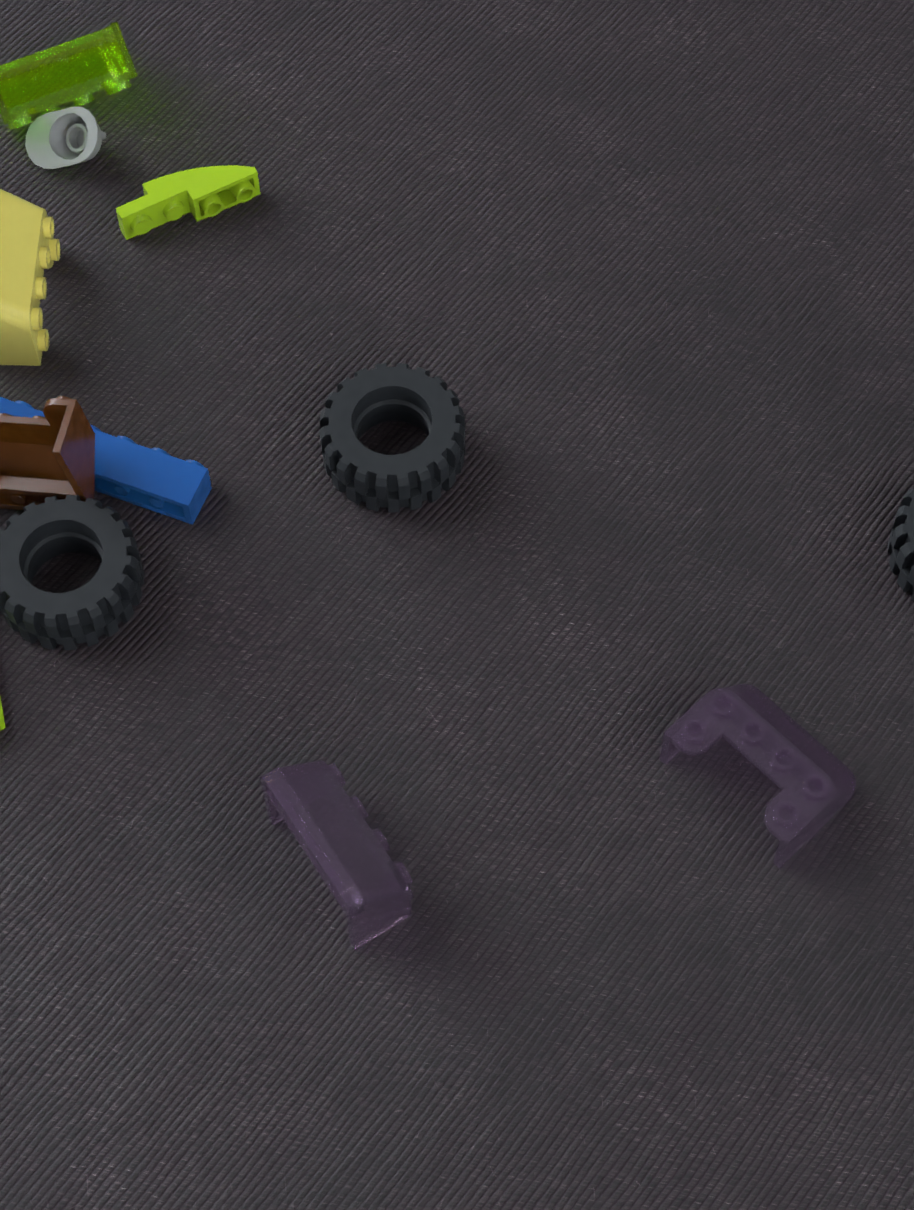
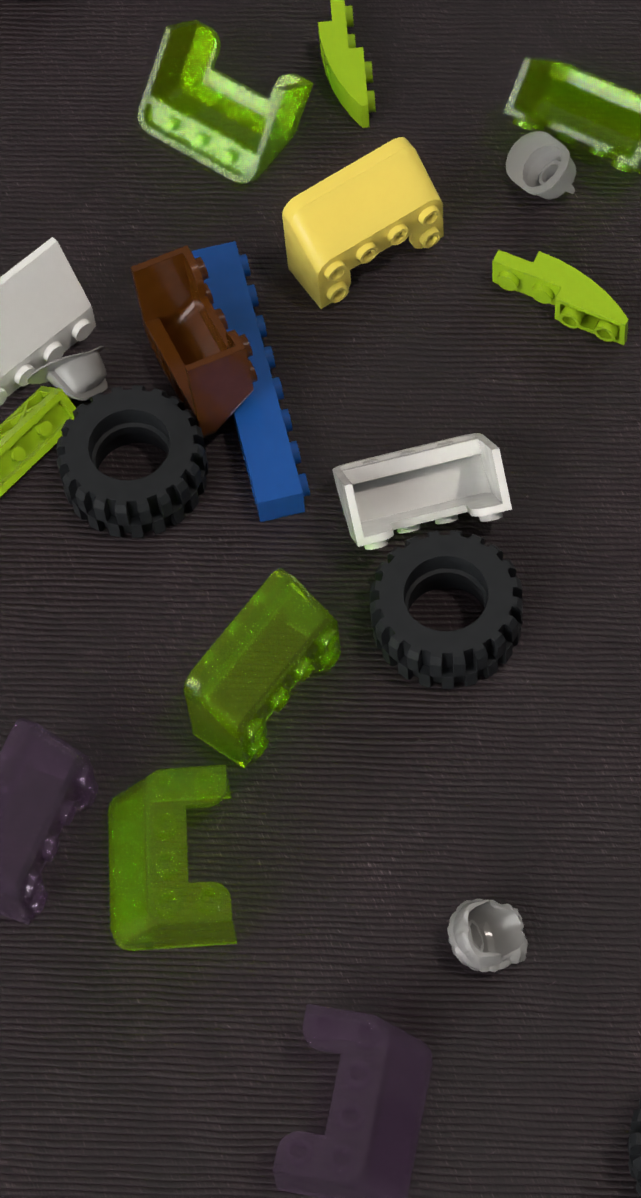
camera: 60 degrees right, 0 degrees up
(271, 383) = (420, 487): none -> white windscreen
(348, 590) = (257, 664): none -> clear neon green windscreen
(443, 778) = (149, 864): none -> clear neon green windscreen
(685, 584) = (487, 935): none -> light grey hair

